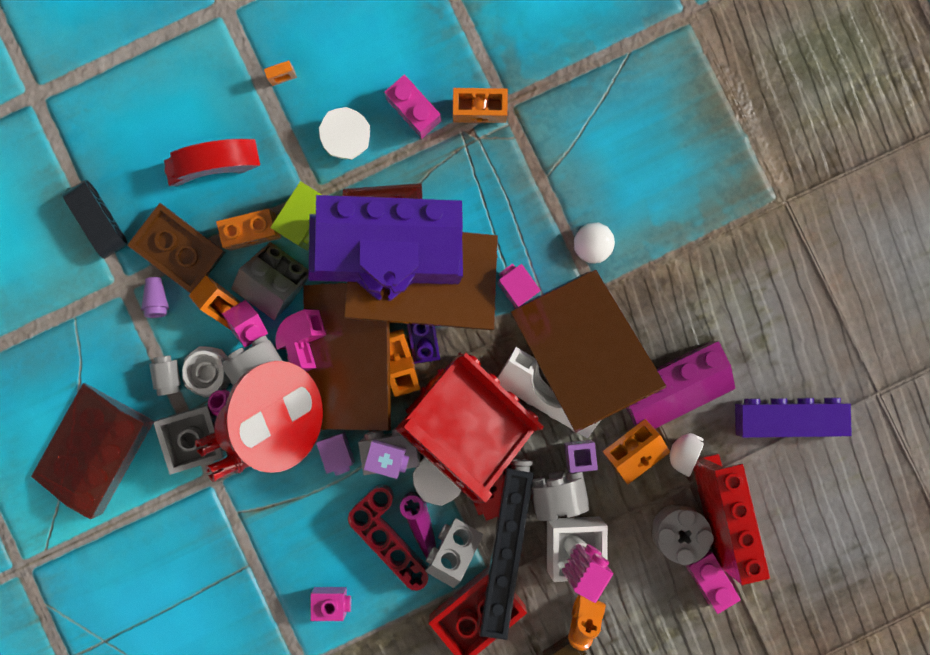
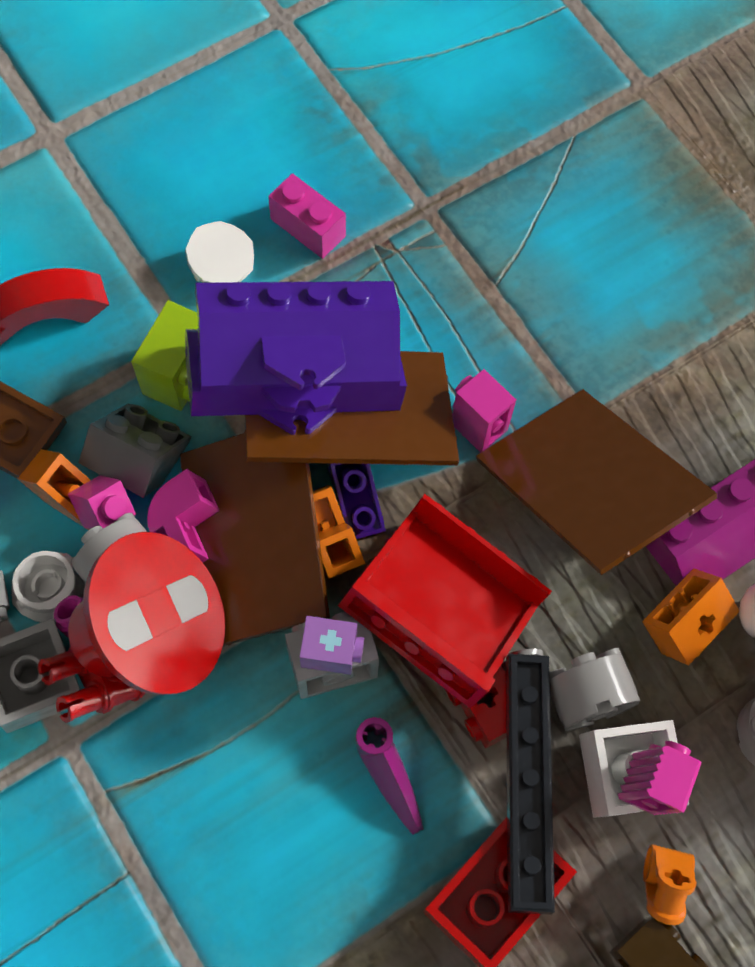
camera: 10 degrees left, 20 degrees down
(247, 229) = (98, 385): orange brick -> none
(280, 73) = (128, 196): orange tile -> none
(330, 603) = (263, 911): dark pink brick -> none
(336, 454) = (250, 676): medium lavender brick -> none
(393, 542) = (351, 799): dark red beam -> none
(433, 484) = (406, 698): white hat -> none
(457, 554) = (449, 797): light grey brick -> none
(480, 105) = (395, 203): orange brick -> none
(523, 379) = (508, 530): white arch -> none
(581, 456) = (612, 629): medium lavender brick -> none
(594, 243) = (574, 354): white hair -> none

